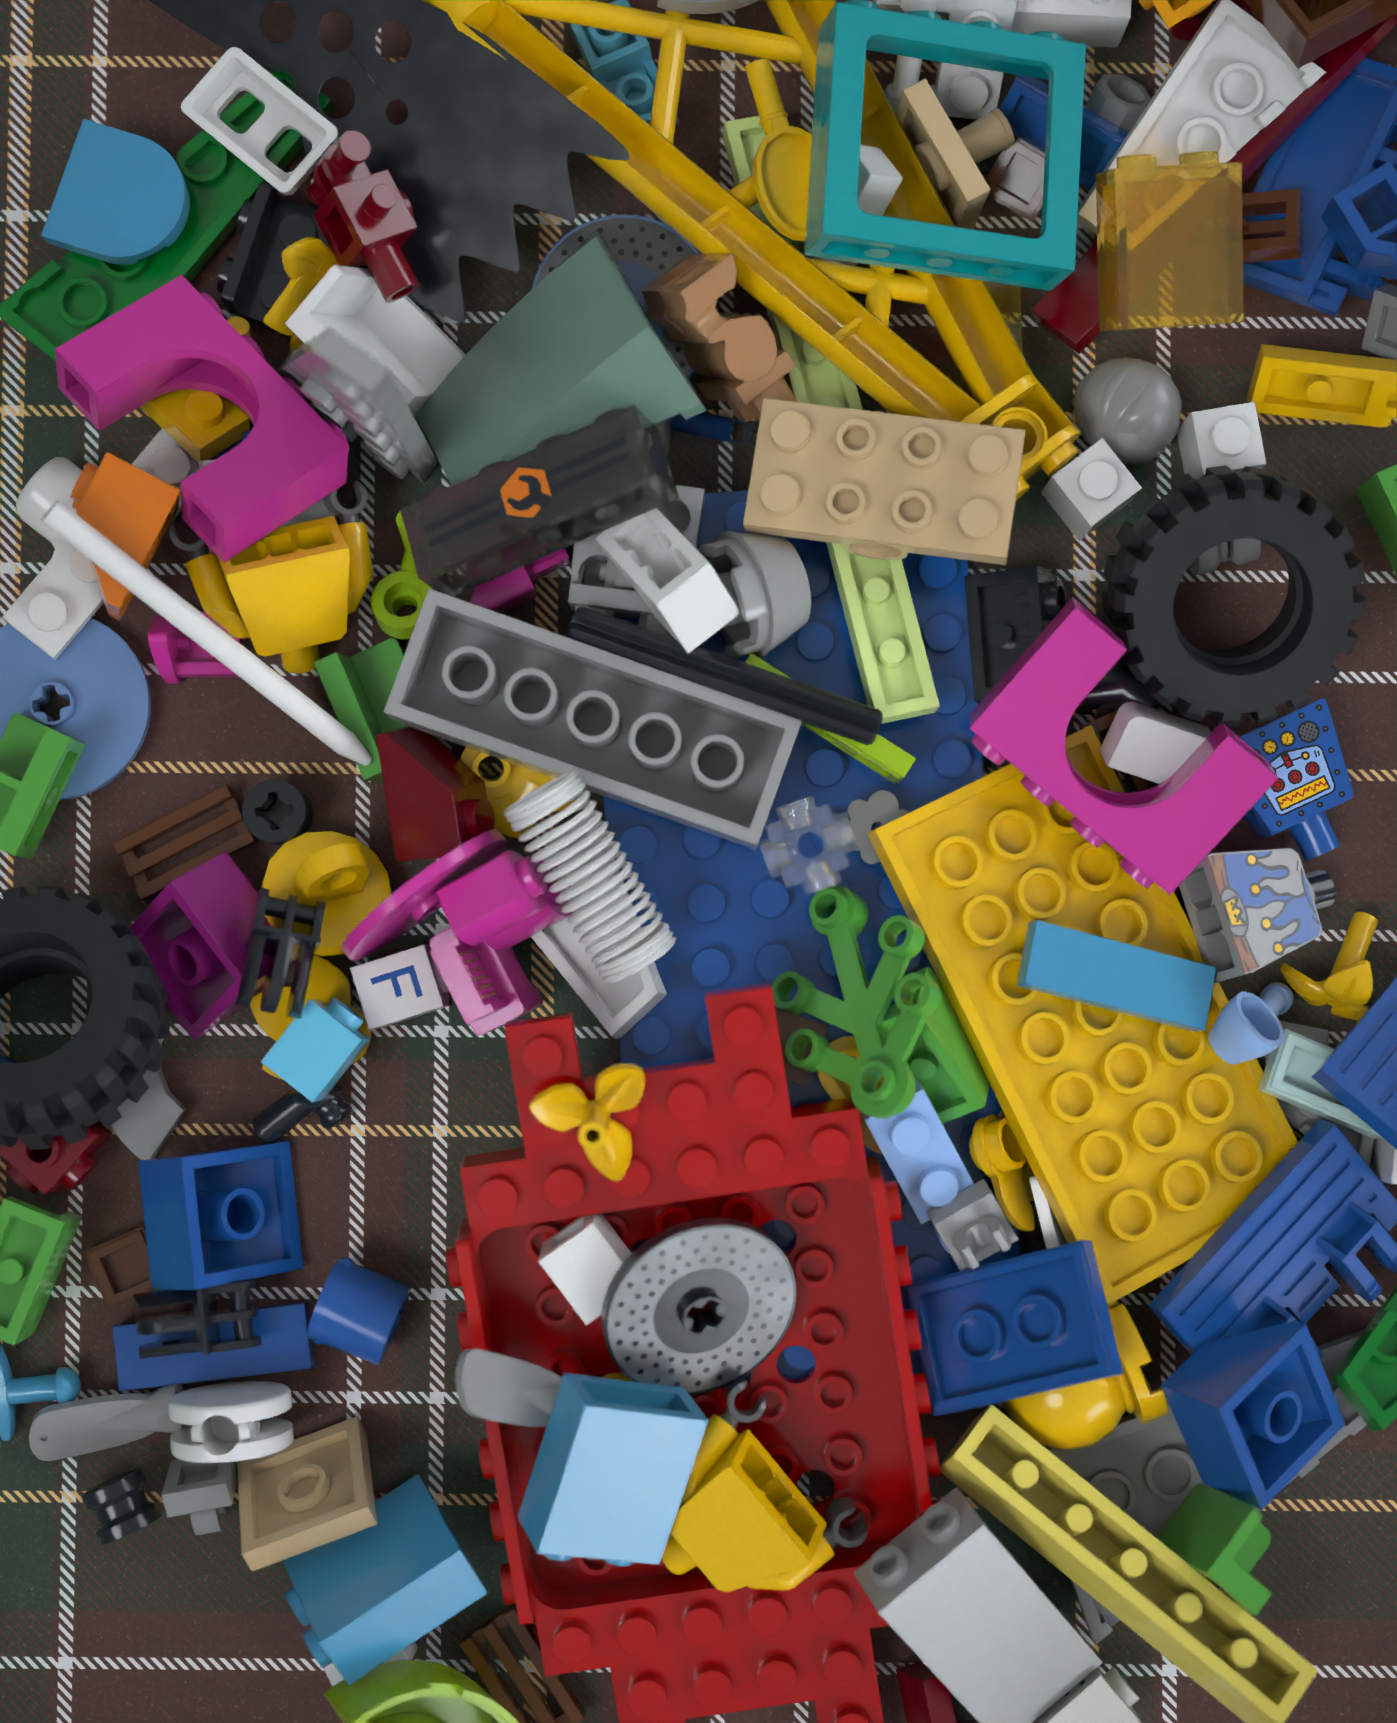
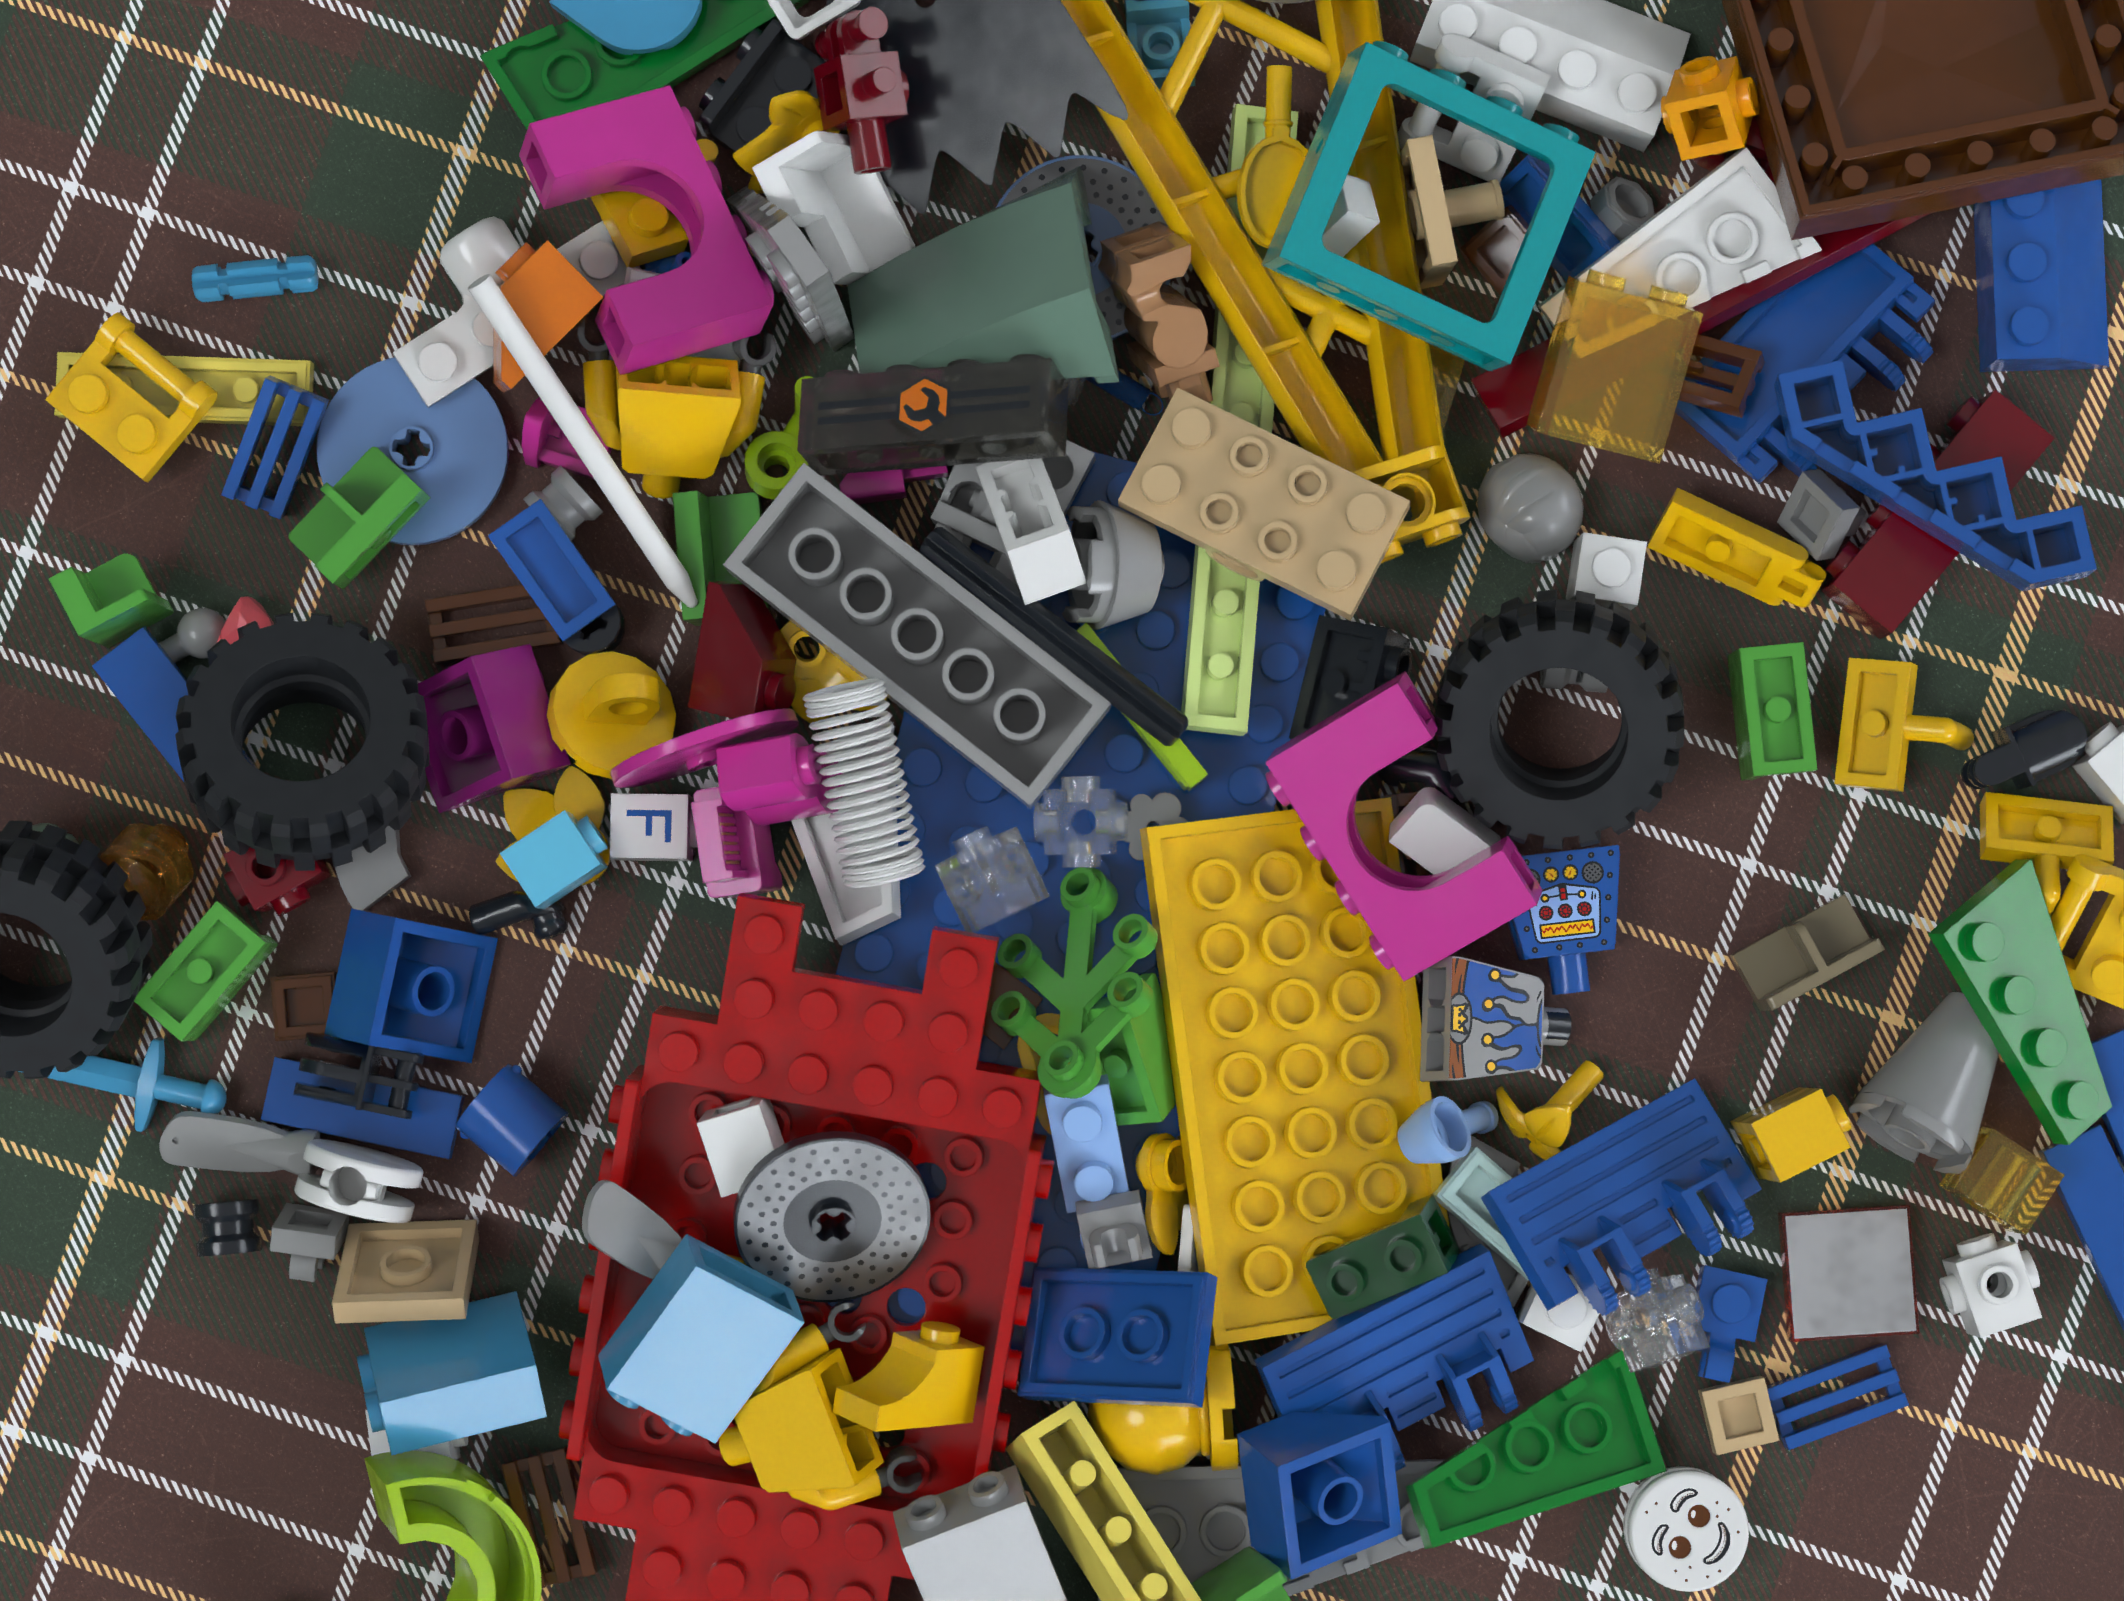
camera: 20 degrees right, 0 degrees up
(214, 709) = (566, 501): none -> light grey wheel
(222, 773) = (552, 570): none -> blue tile
(281, 947) = (554, 753): black arm -> none
(603, 1139) = (795, 1031): yellow plant -> none
(740, 928) = (990, 878): none -> clear brick
(837, 1440) = (920, 1382): none -> yellow arch
(1090, 489) = (1467, 572): white brick -> none
(1116, 976) = (1329, 1042): dark azure tile -> none
(1241, 1168) = (1385, 1260): none -> dark green bracket

